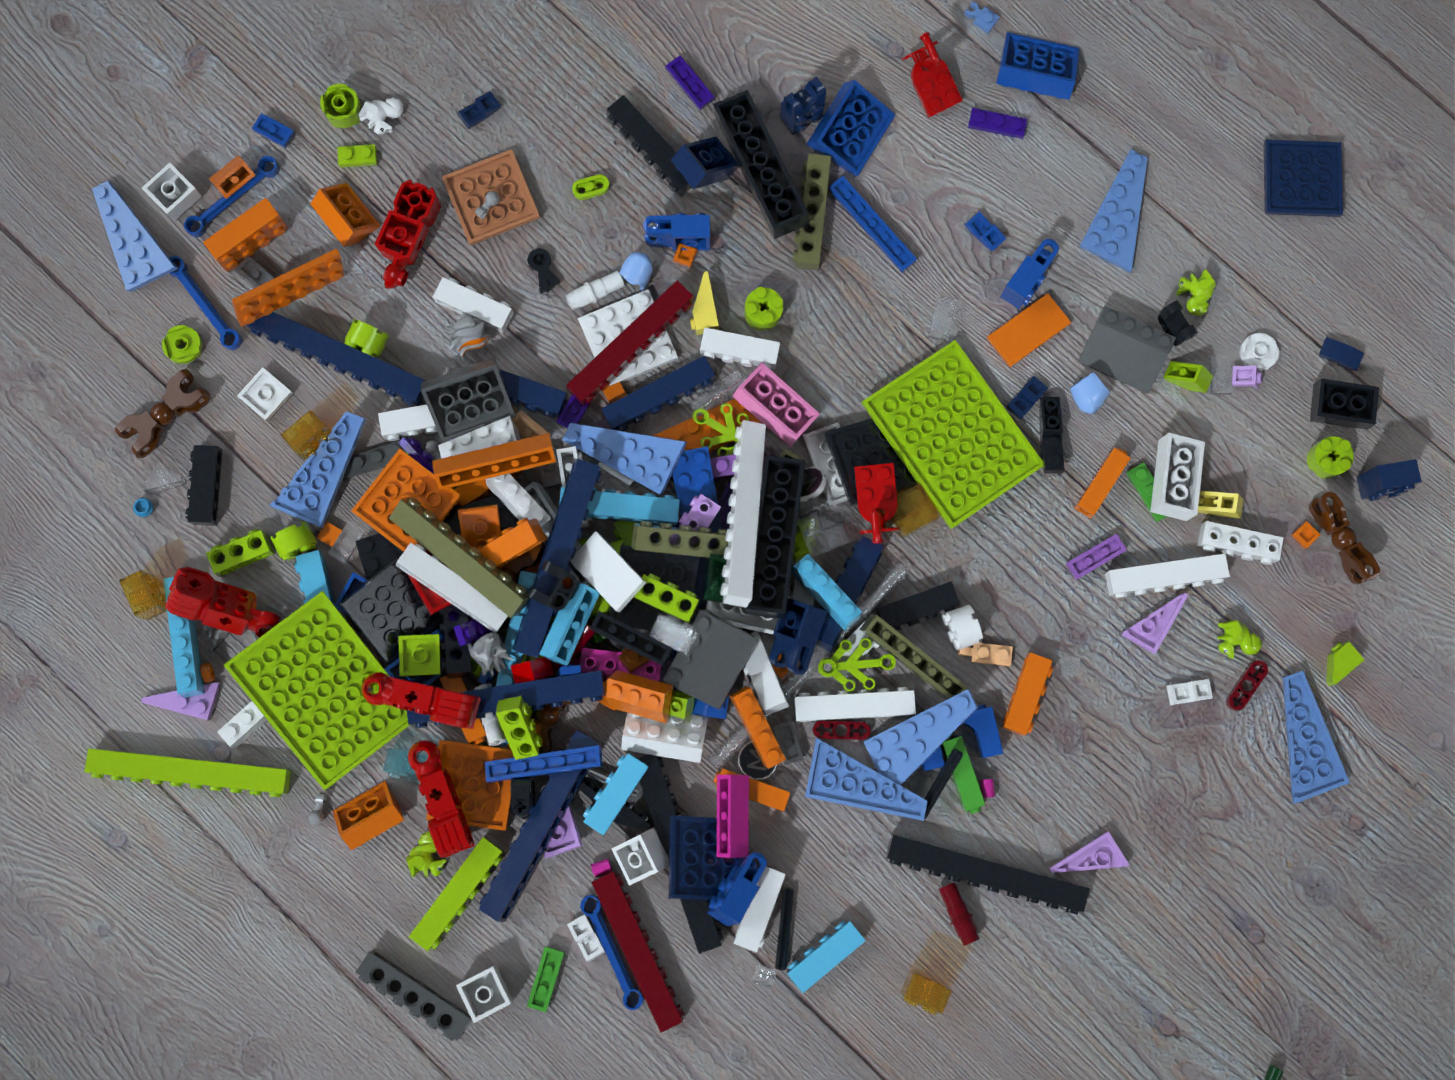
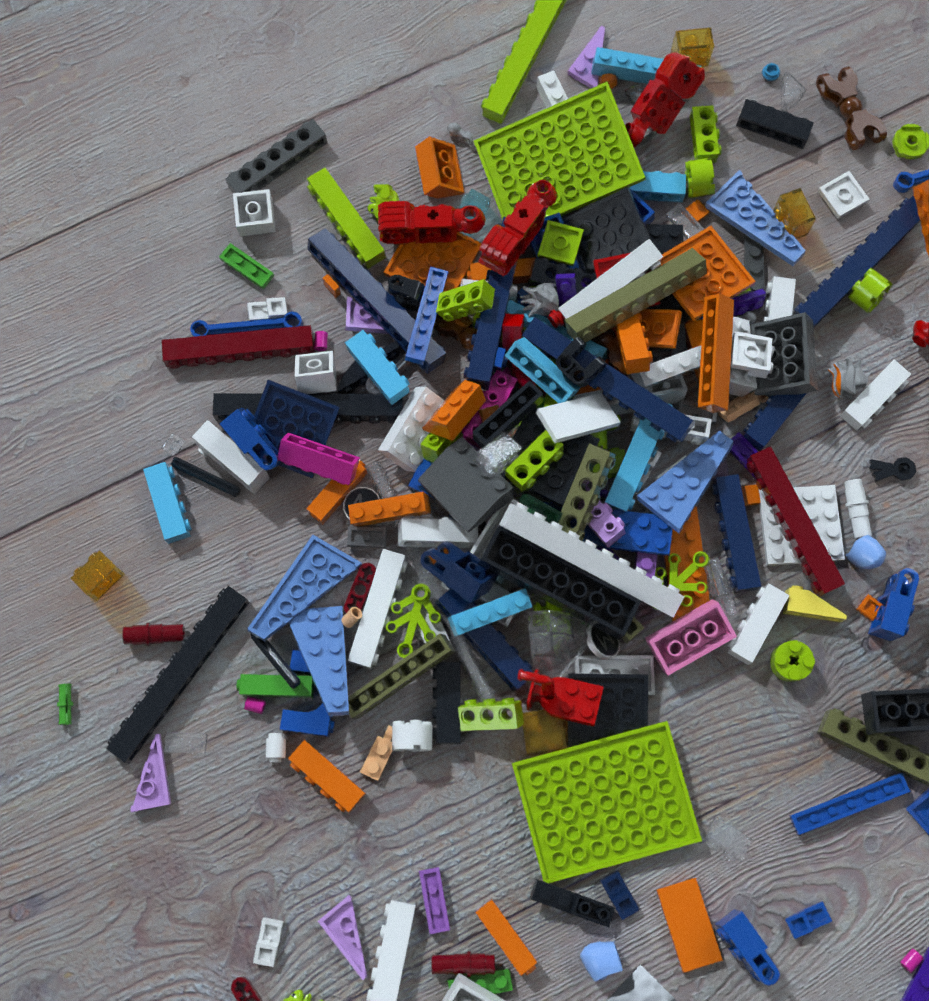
camera: 110 degrees right, 5 degrees down
(480, 428) = (752, 354): none -> white plate
(506, 630) = (556, 318): none -> red plate
(538, 878) = (331, 285): none -> orange tile
(873, 726) = (351, 617): none -> light nougat hinge
(925, 565) = (482, 719): none -> lime brick
(985, 137) = (911, 960): none -> dark pink hinge
(1019, 752) = (275, 747): none -> white brick
(1056, 973) = (64, 704): none -> bright green pin
(1140, 511) = (464, 963): none -> dark red piece

